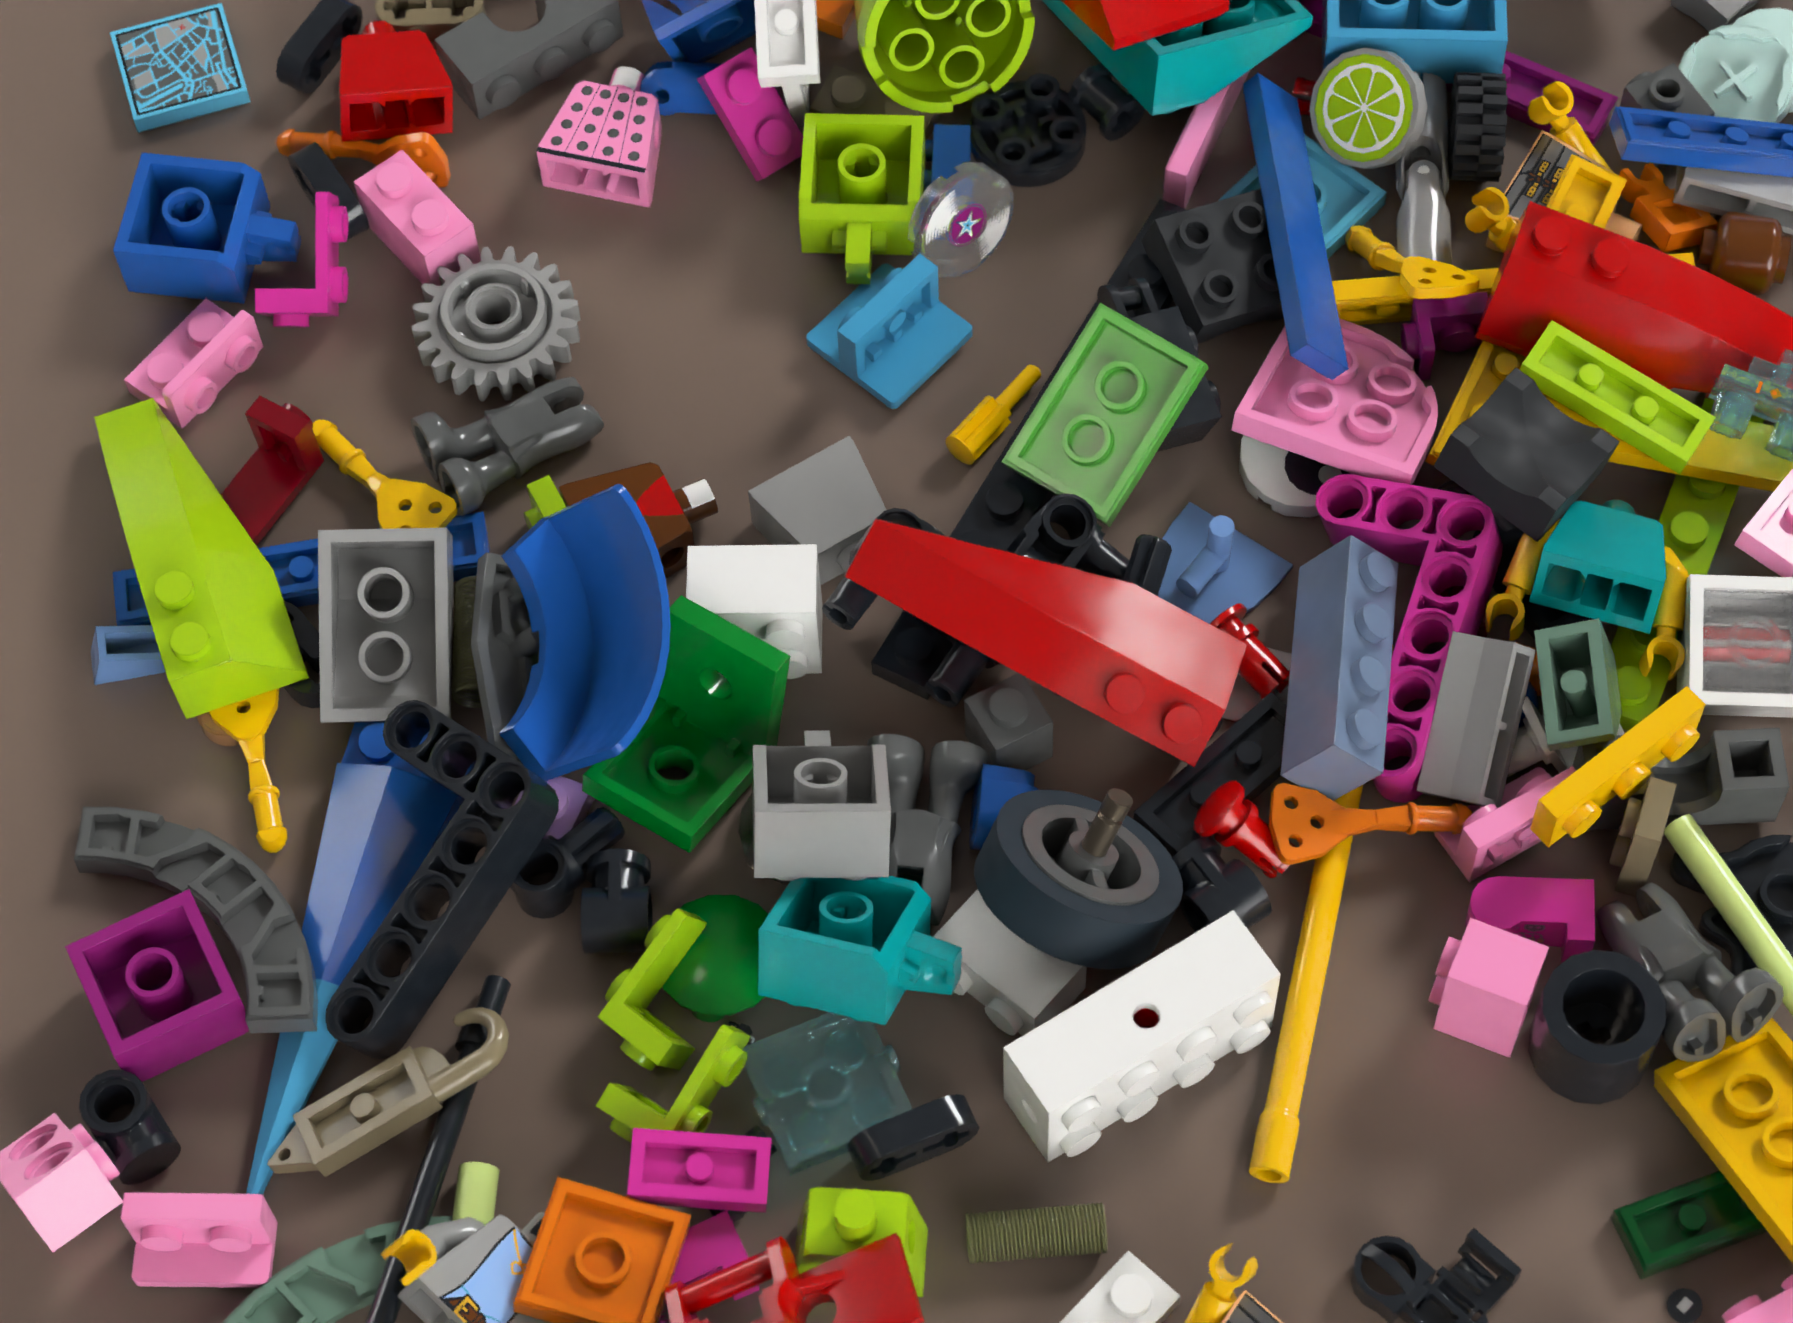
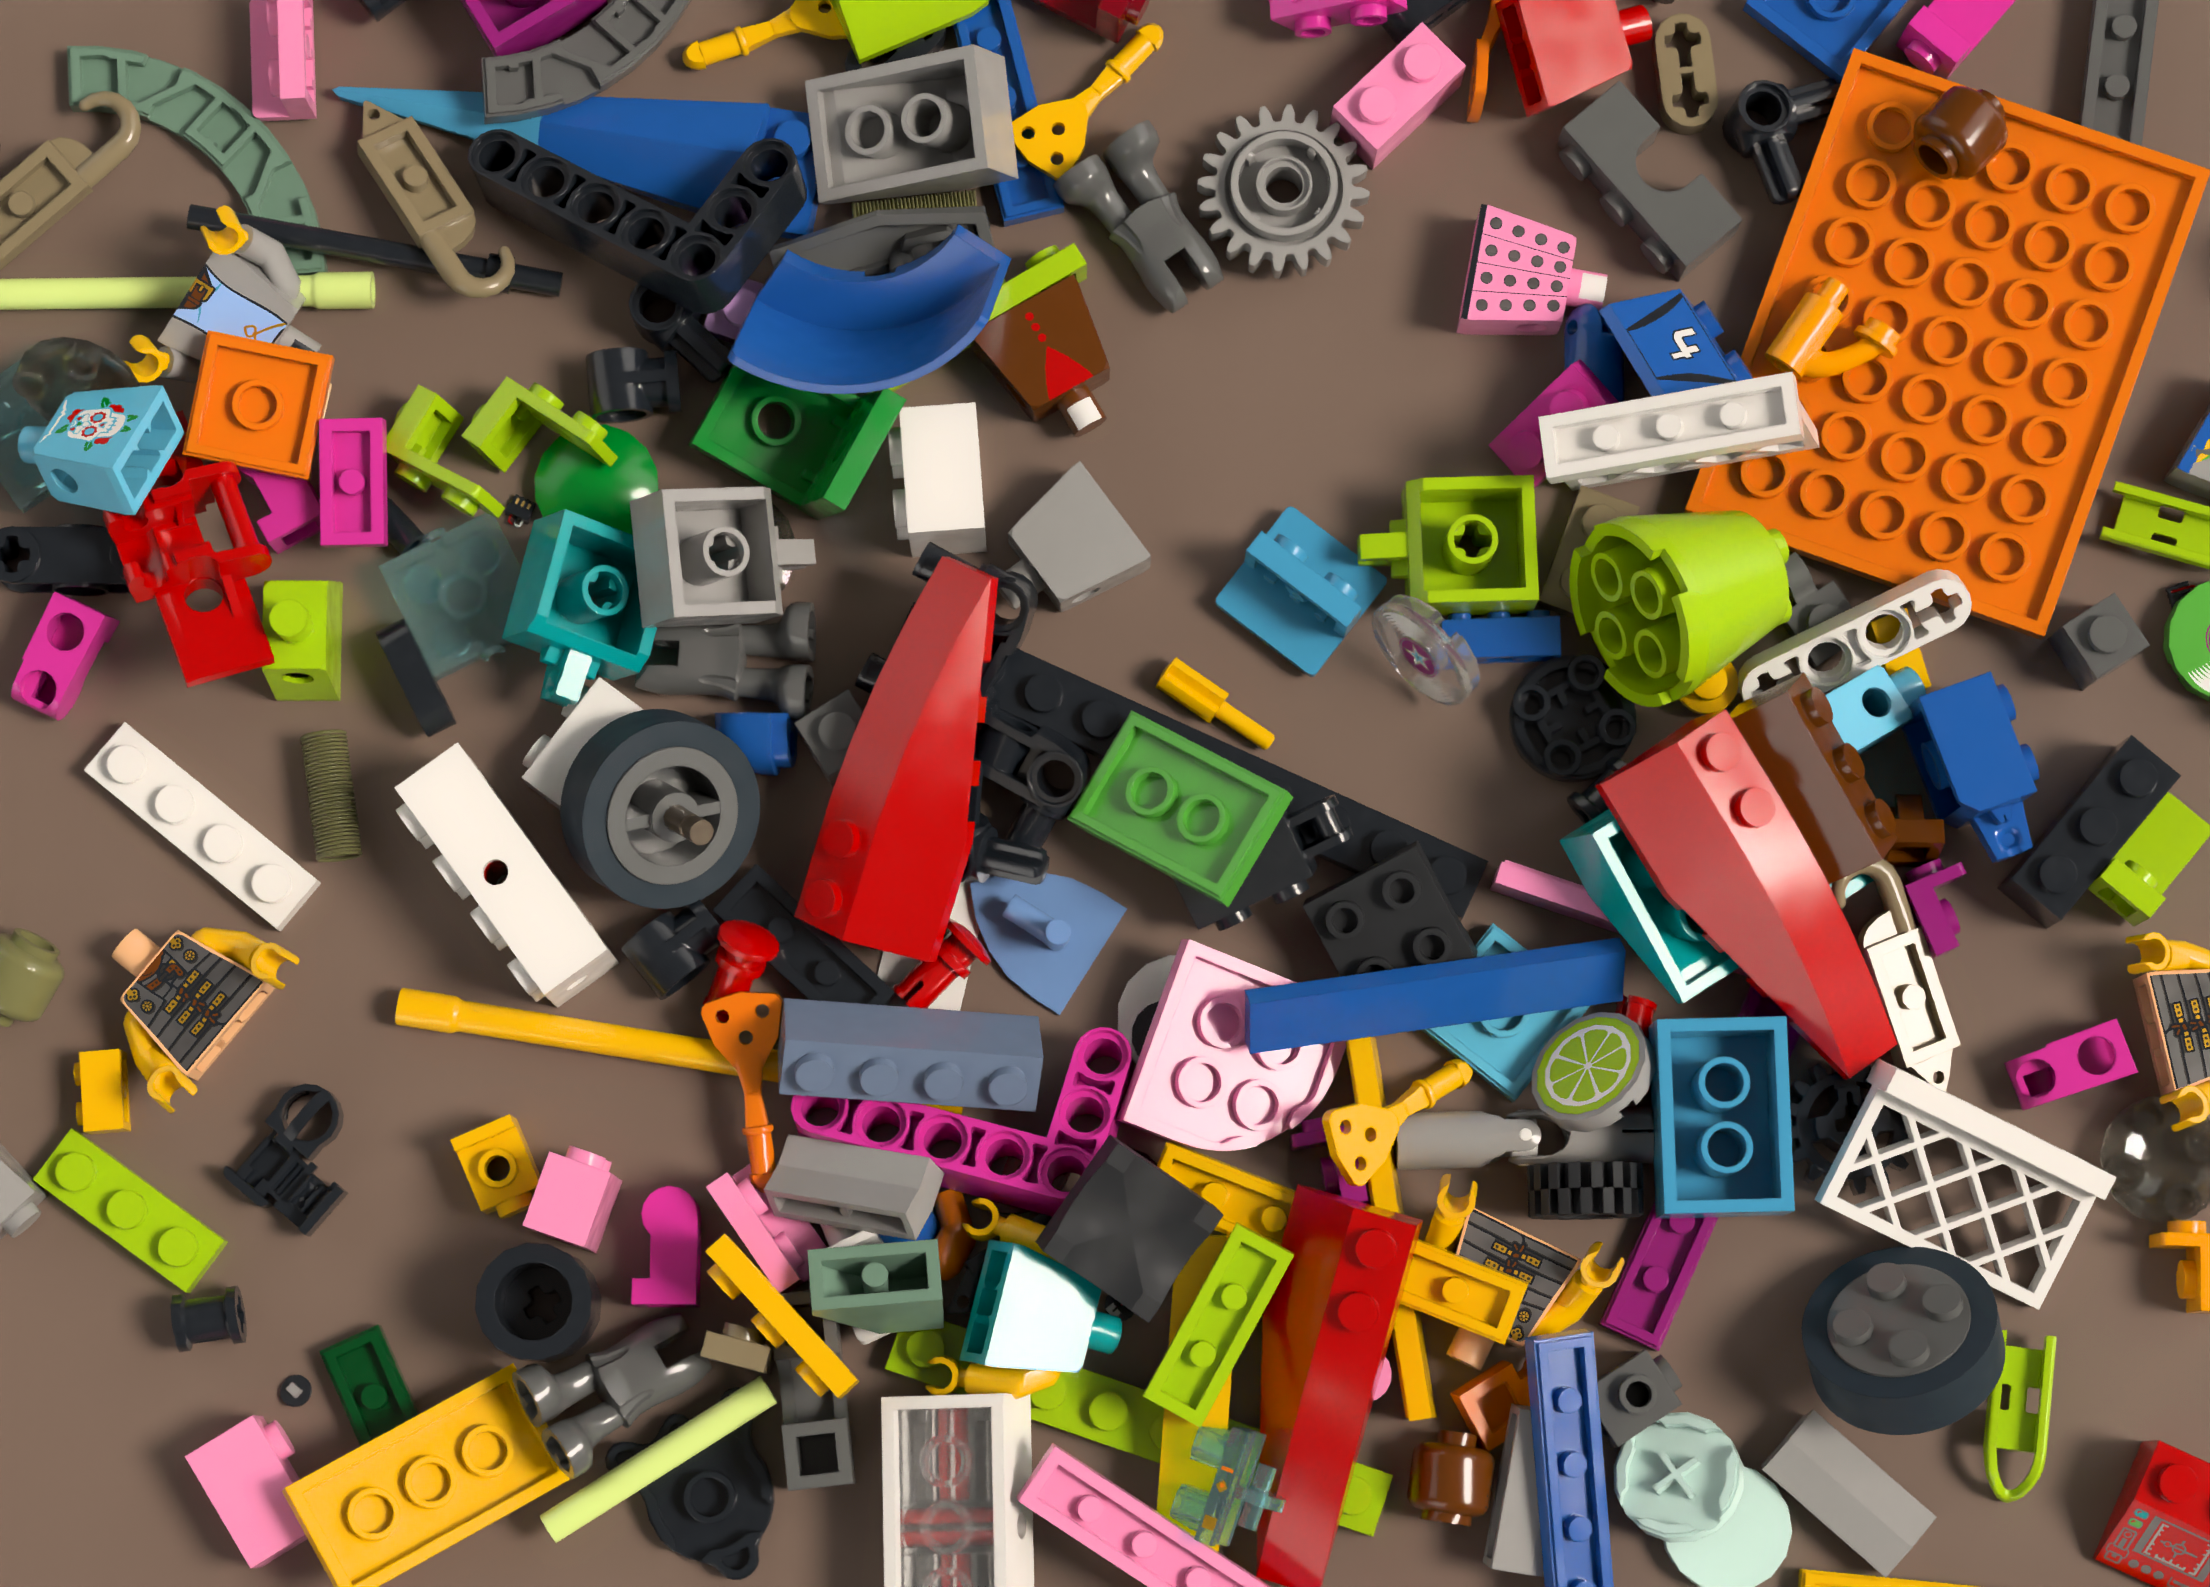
camera: 80 degrees right, 20 degrees up
(1432, 1093) = (494, 1140): none -> yellow brick

